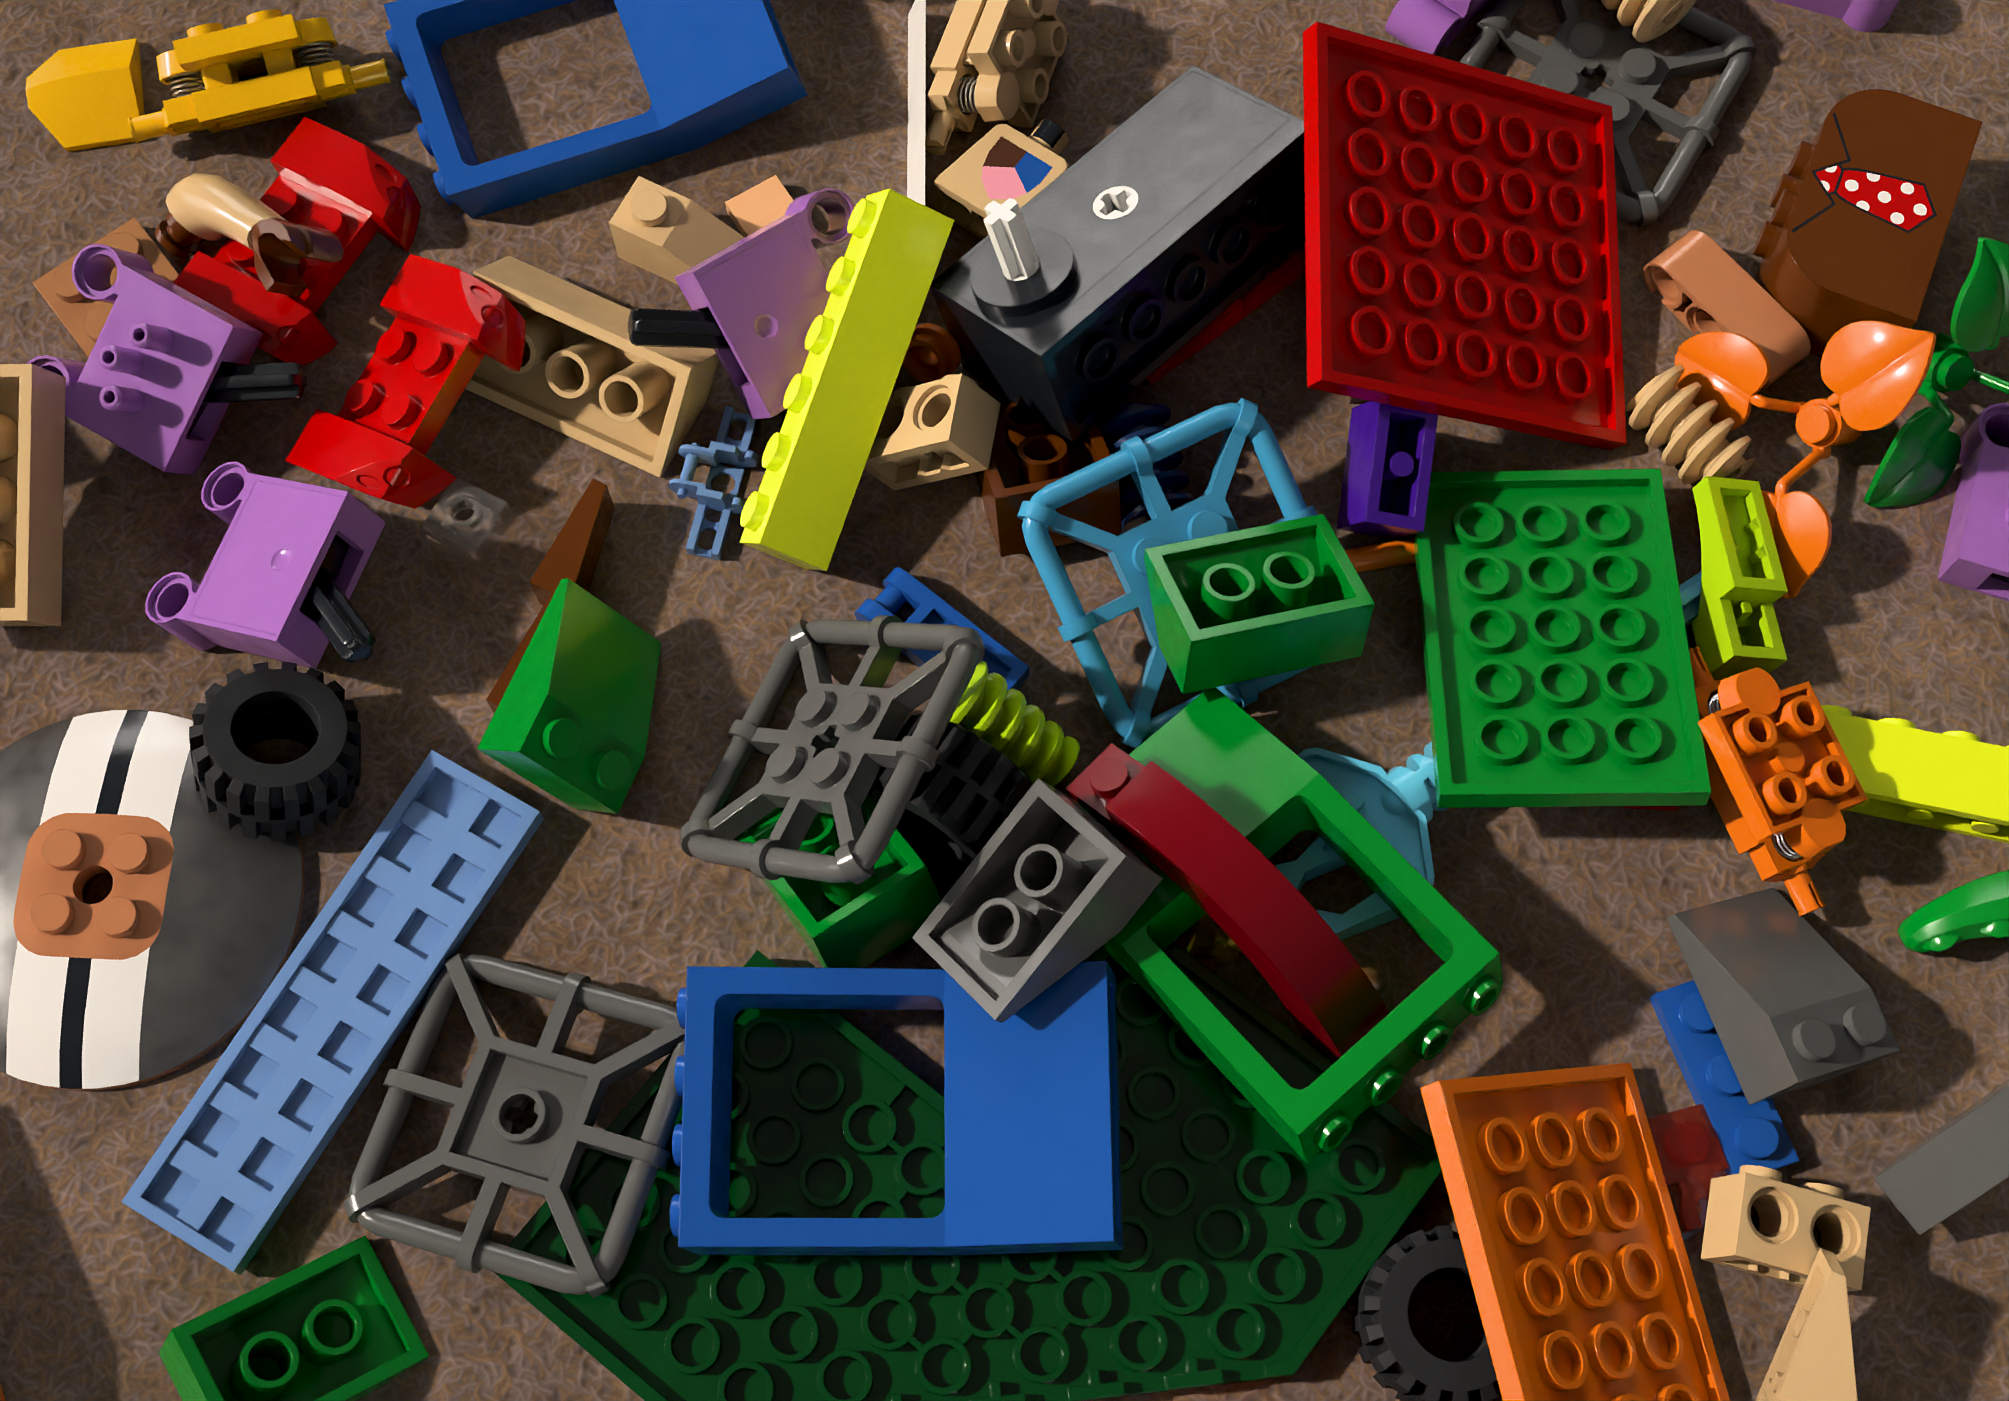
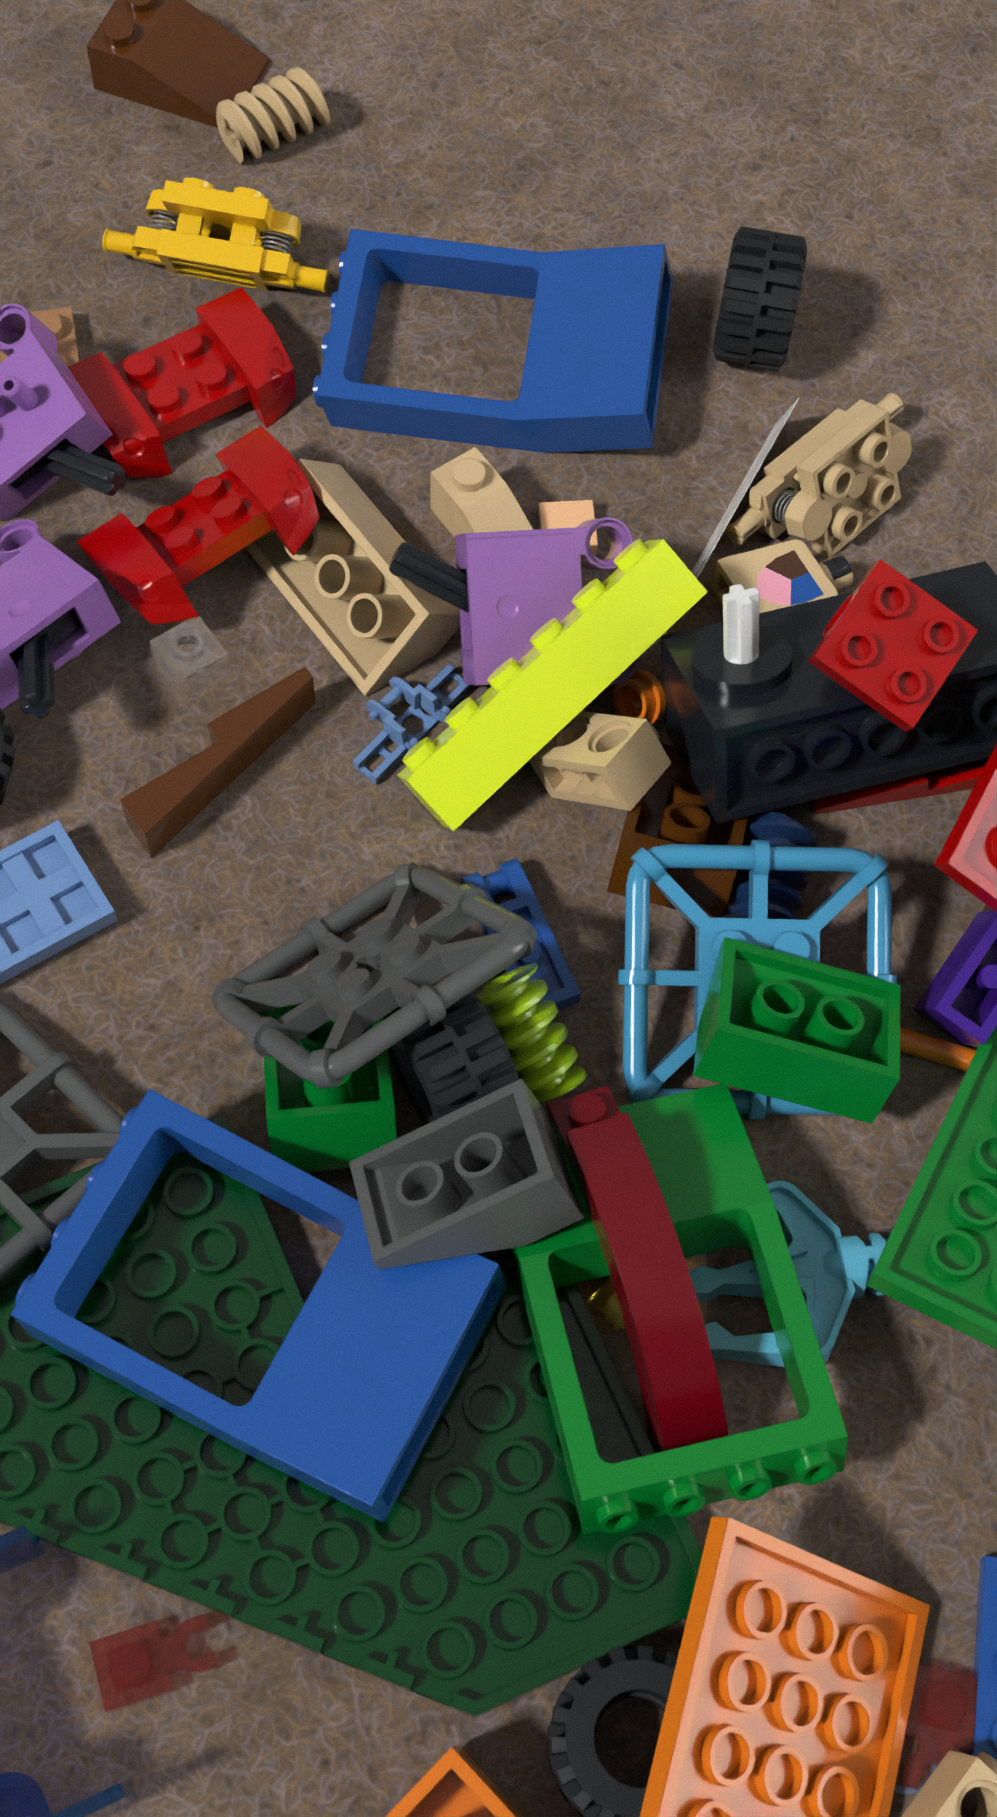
camera: 25 degrees right, 5 degrees down
(88, 94) = (89, 198): yellow slope -> none
(213, 206) = (133, 325): piece -> none
(578, 703) = (192, 837): green slope -> none
(1163, 193) = (892, 645): none -> red plate

